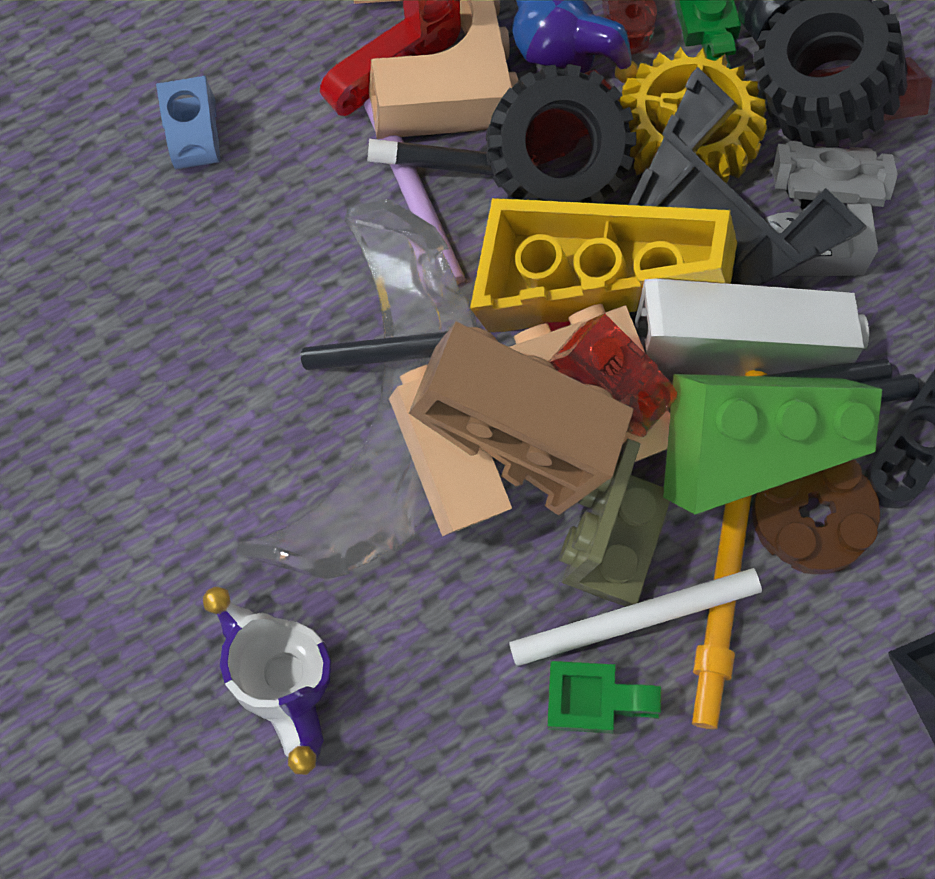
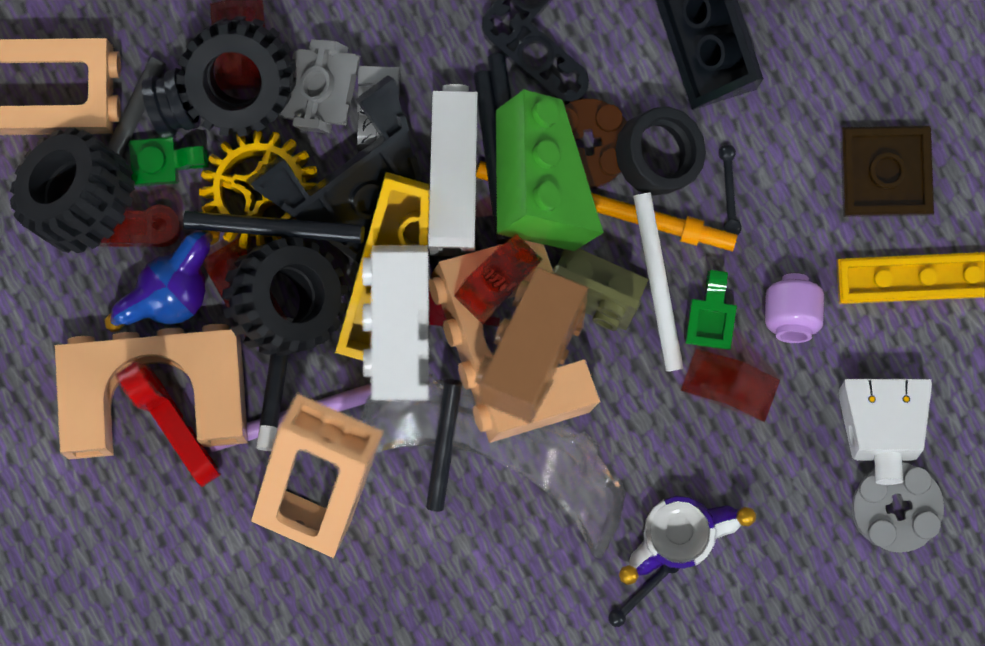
camera: 90 degrees left, 15 degrees up
(166, 602) = (618, 616): none -> black hinge
(189, 122) = (224, 594): medium blue leg -> none
(333, 176) = (331, 437): none -> light nougat piece
(496, 737) = (730, 384): none -> clear red slope
(532, 244) = (397, 322): none -> white wedge
(618, 819) = (794, 308): none -> lavender head
(646, 116) = (273, 226): none -> black bar
(832, 707) = (727, 154): none -> black hinge
(866, 625) = (686, 135): none -> black tyre

